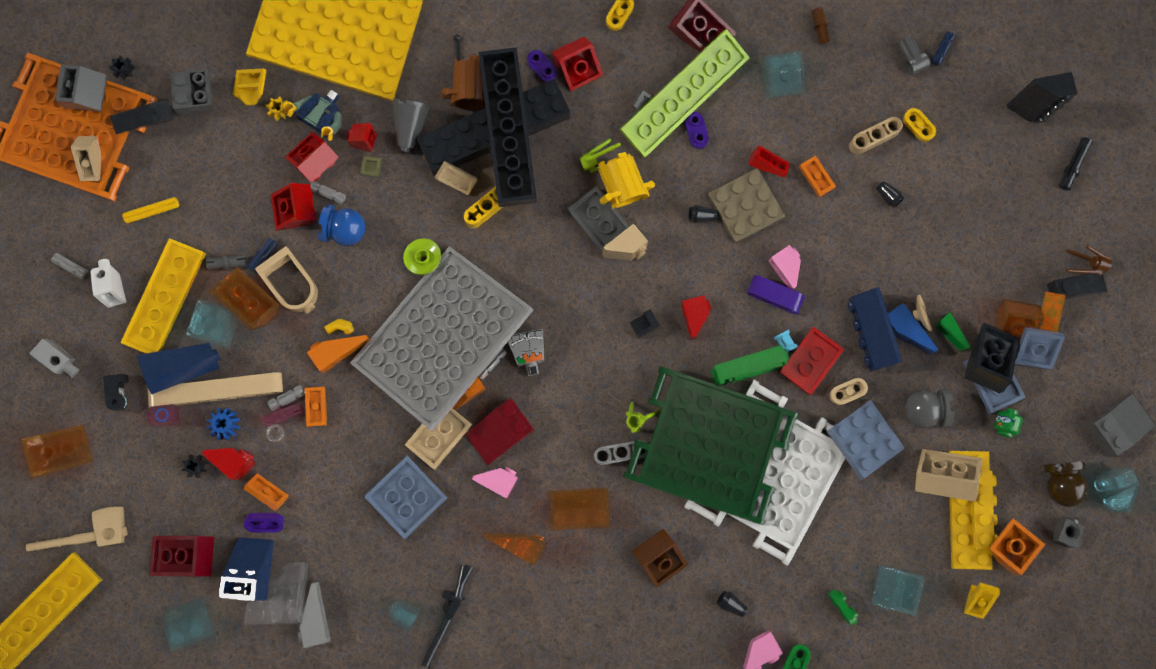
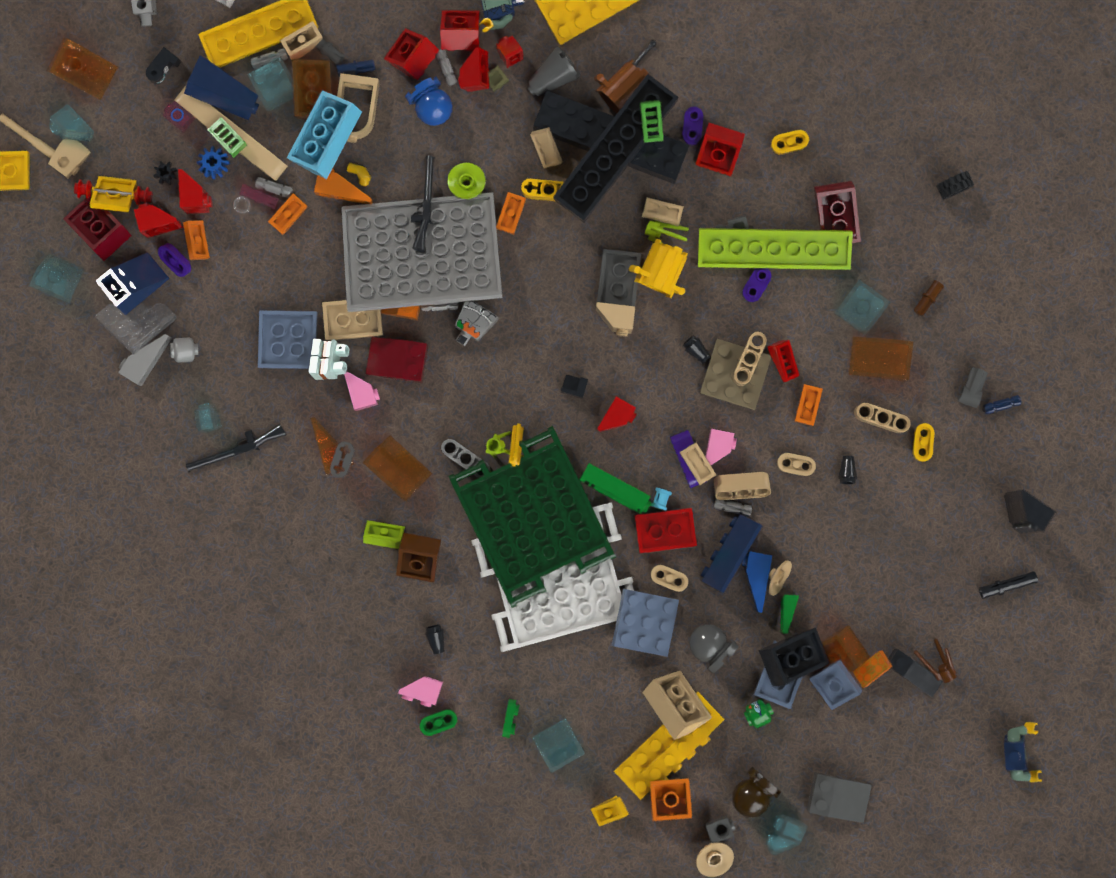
camera: 50 degrees right, 5 degrees up
(87, 501) = (70, 125): none -> clear light blue slope
(169, 519) = (113, 193): none -> yellow plate
(185, 321) = (266, 58): none -> light grey axle
(203, 273) = (302, 41): none -> tan slope
(221, 508) = (155, 221): none -> red slope
(231, 394) = (238, 147): none -> bright green slope
(286, 321) = (324, 134): none -> medium azure slope
(336, 581) = (183, 349): none -> light grey head
(351, 175) = (475, 71): none -> red slope
(420, 311) = (425, 218): none -> black piece
(449, 483) = (326, 359): none -> light aqua hips
(476, 248) = (511, 213): none -> orange plate
(511, 86) = (650, 104): none -> bright green slope
(541, 540) = (346, 461): none -> dark grey beam
(581, 143) = (662, 211): none -> tan plate
(617, 567) = (383, 534): none -> lime slope
(652, 409) = (515, 449): none -> yellow axle
(747, 174) = (756, 352): none -> tan beam
(787, 290) = (697, 463): none -> tan plate
(831, 276) = (742, 486): none -> tan beam
(833, 96) = (881, 358): none -> clear orange slope
(839, 297) = (733, 507): none -> light grey axle
(850, 225) = (796, 464): none -> tan plate
(1087, 557) = (716, 865): none -> tan dish

